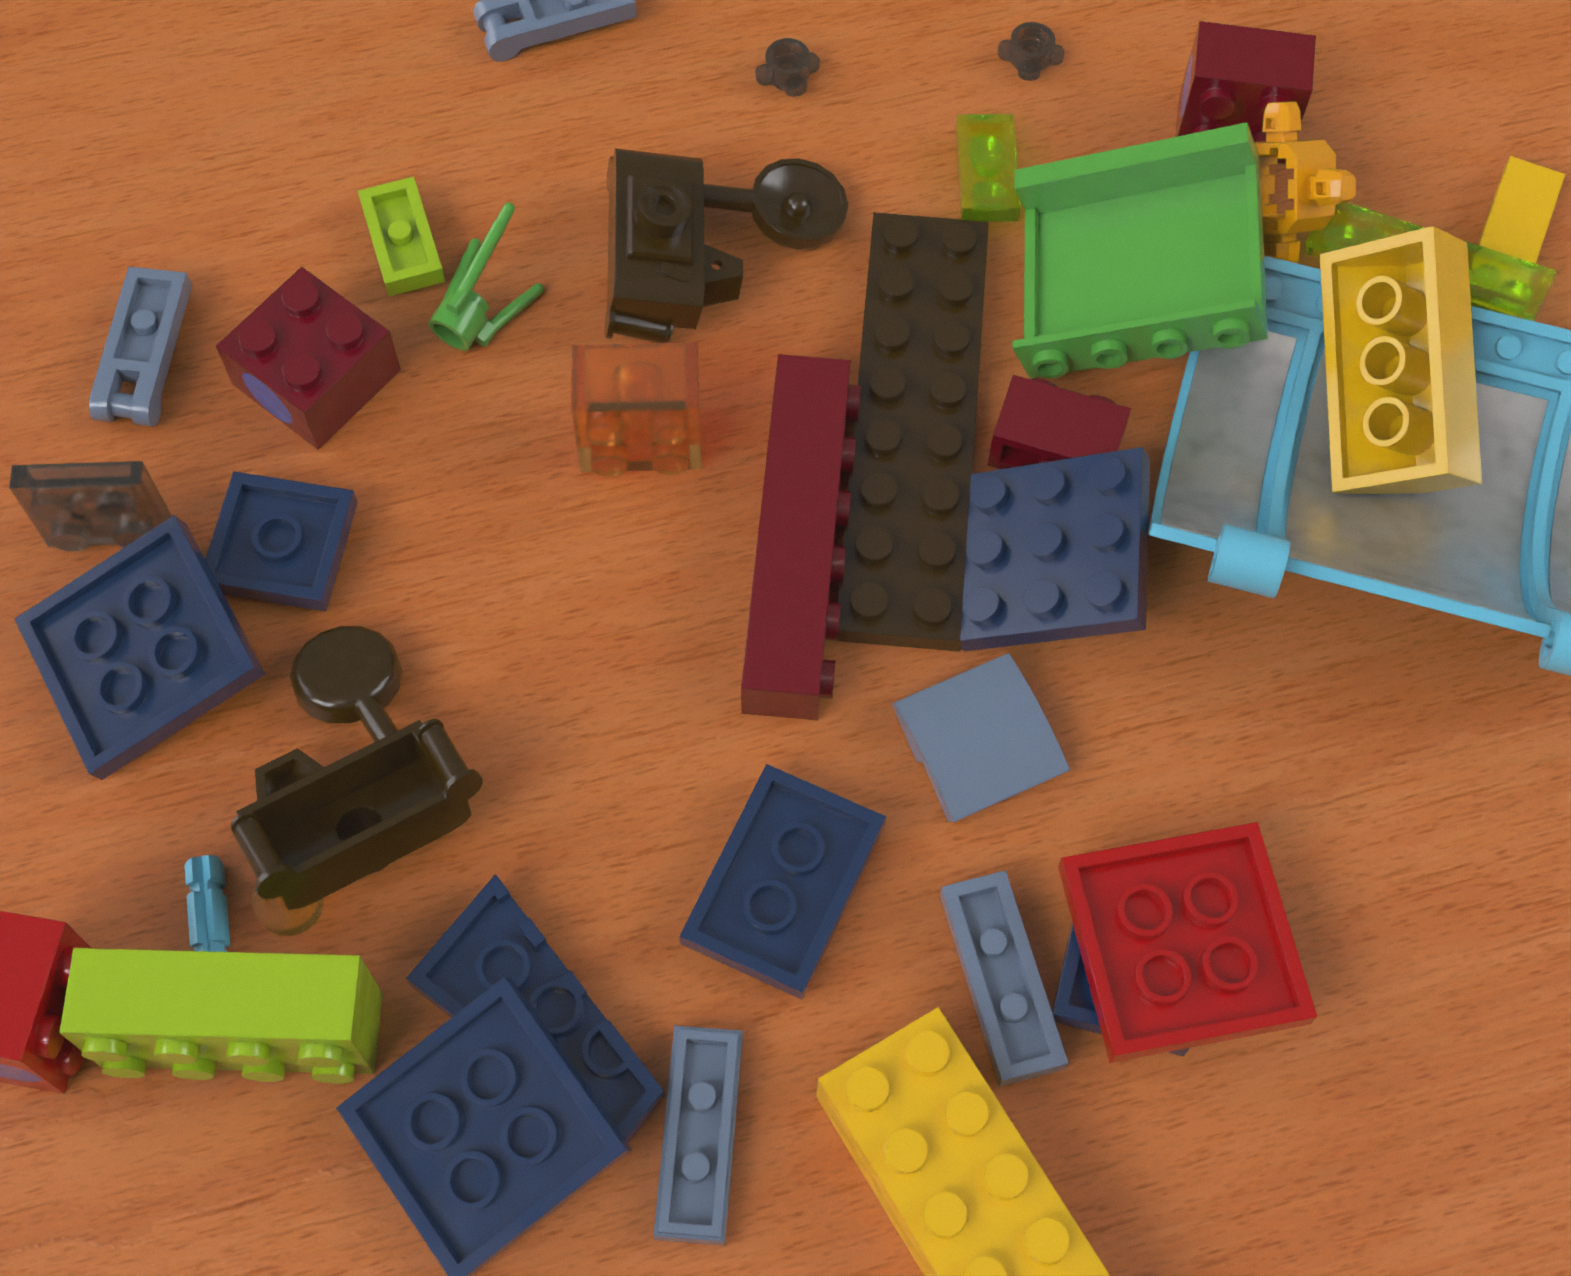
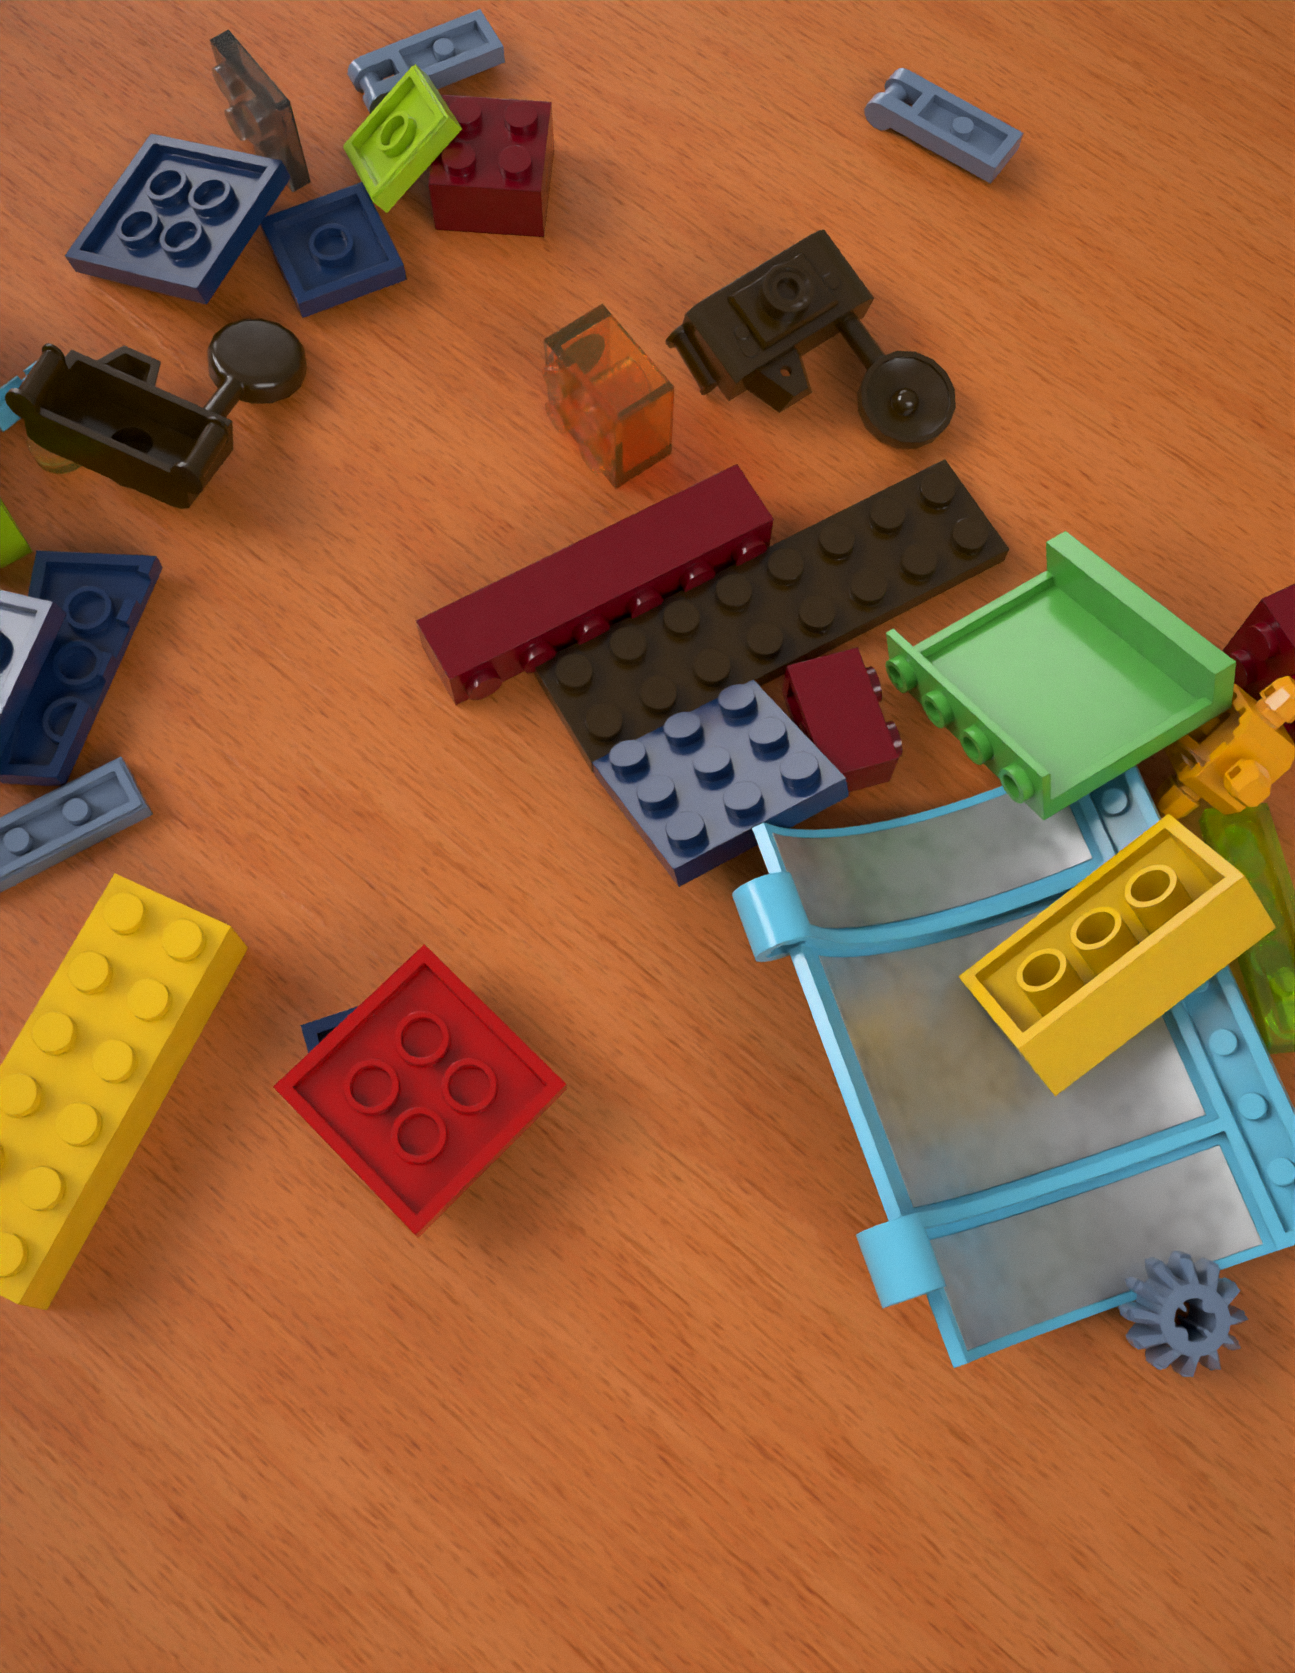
camera: 55 degrees right, 5 degrees up
(226, 408) = (401, 138): none -> lime tile
(401, 236) = (649, 157): lime plate -> none
(463, 312) = (612, 236): bright green plant -> none
(783, 881) = (289, 759): dark blue plate -> none
(787, 66) = (1038, 302): clear smoke plate -> none
(980, 737) = (516, 830): sand blue slope -> none
(987, 167) = (1074, 504): clear neon green plate -> none
(1003, 979) = (312, 971): sand blue plate -> none
(1031, 50) = (1217, 467): clear smoke plate -> none

